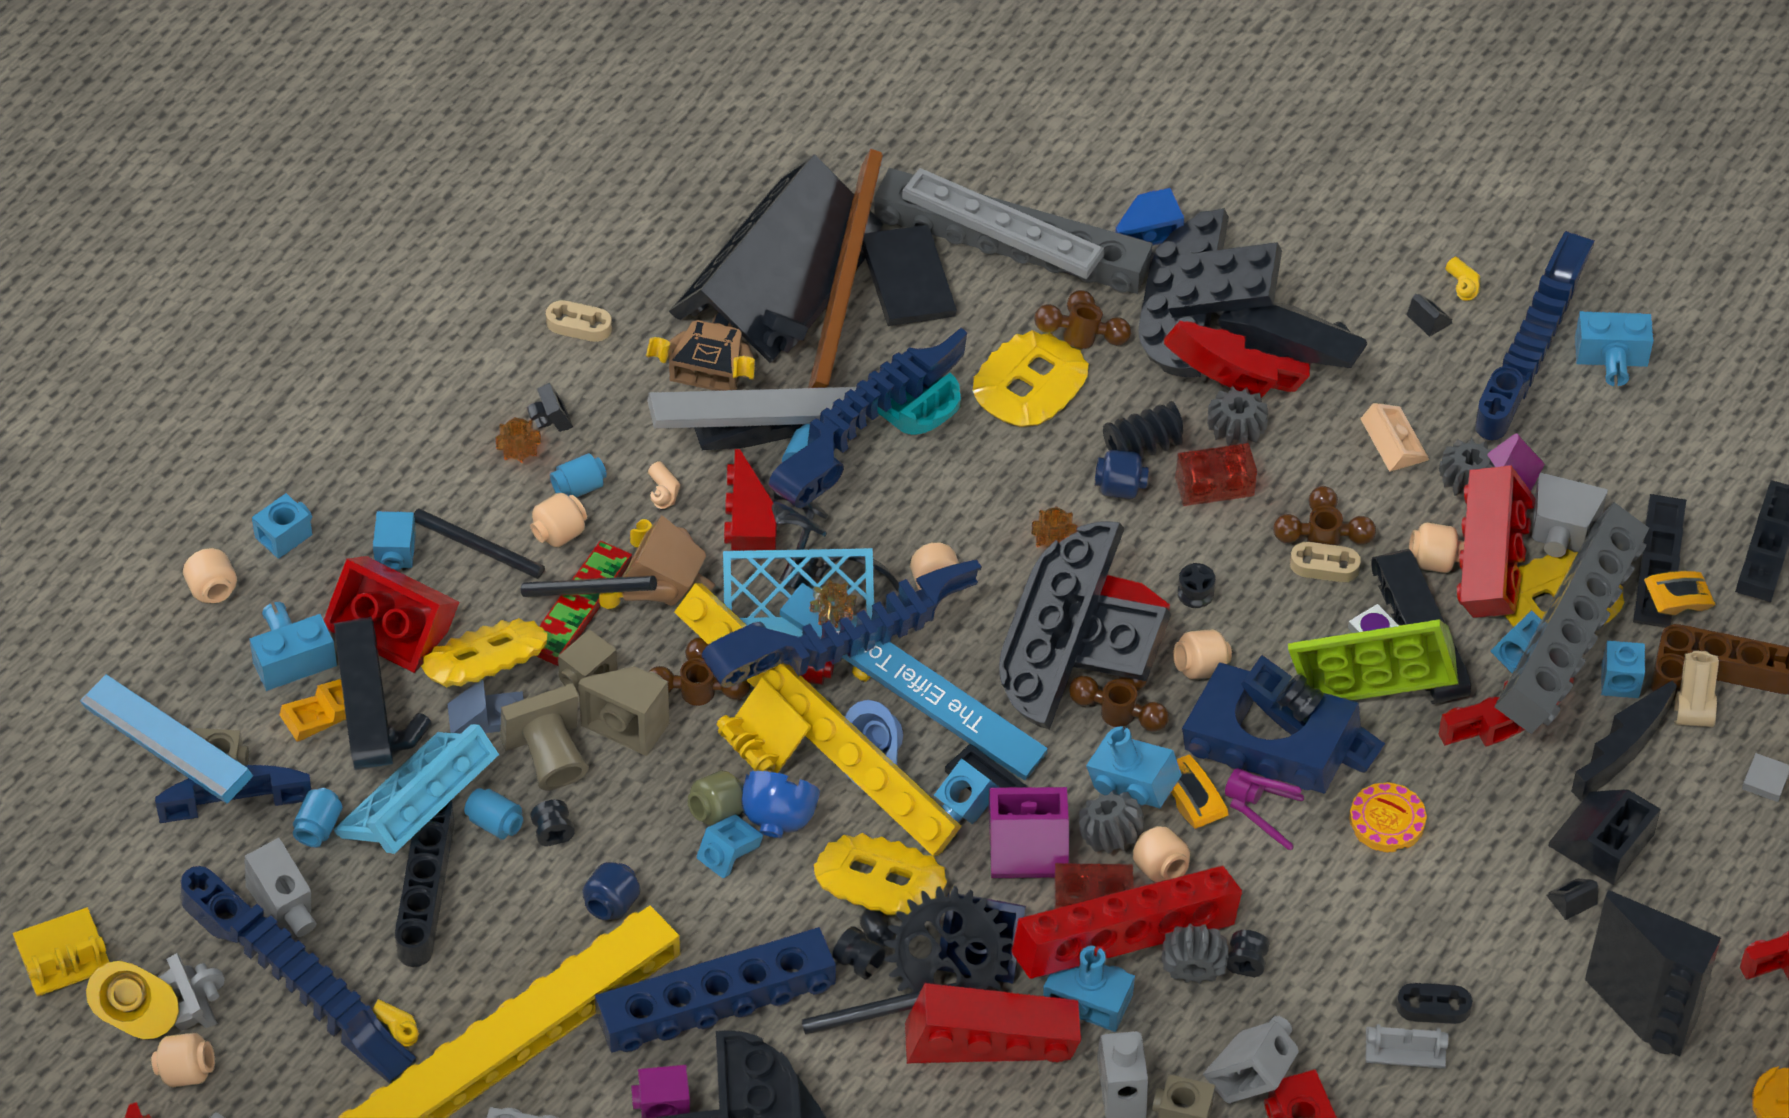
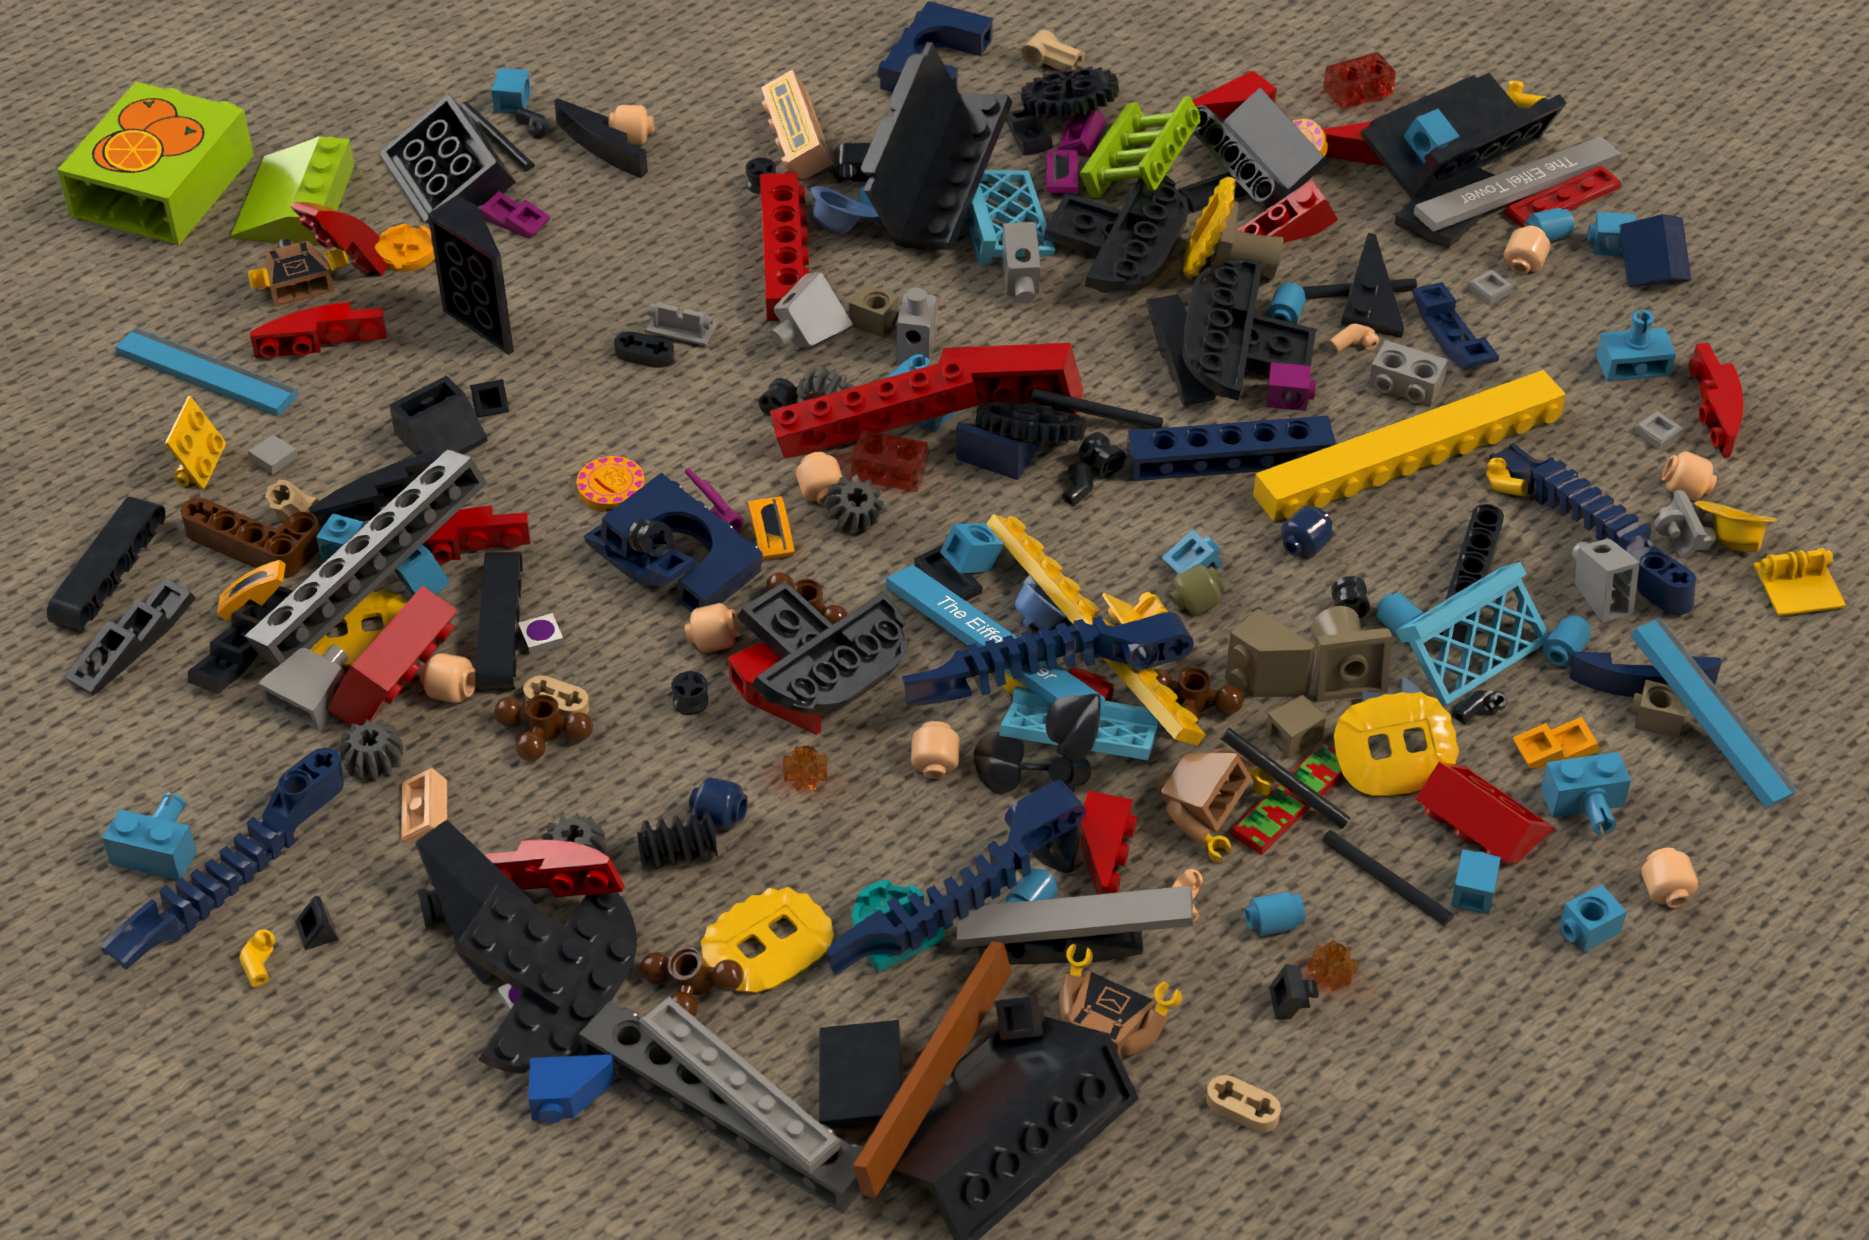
camera: 165 degrees left, 5 degrees down
(363, 693) = (1519, 719): black beam -> none
(558, 519) = (1303, 866): light nougat head -> none
(778, 803) = (1137, 563): blue cylinder -> none
(832, 593) = (1055, 674): clear orange gear -> none
(873, 889) = (1054, 523): yellow piece -> none
(1028, 831) = (925, 514): magenta slope -> none
(1133, 767) = (819, 533): dark azure brick -> none
(1216, 474) = (624, 784): clear red brick -> none
(1379, 660) = (570, 543): lime slope -> none
(1522, 458) = (331, 718): magenta slope -> none

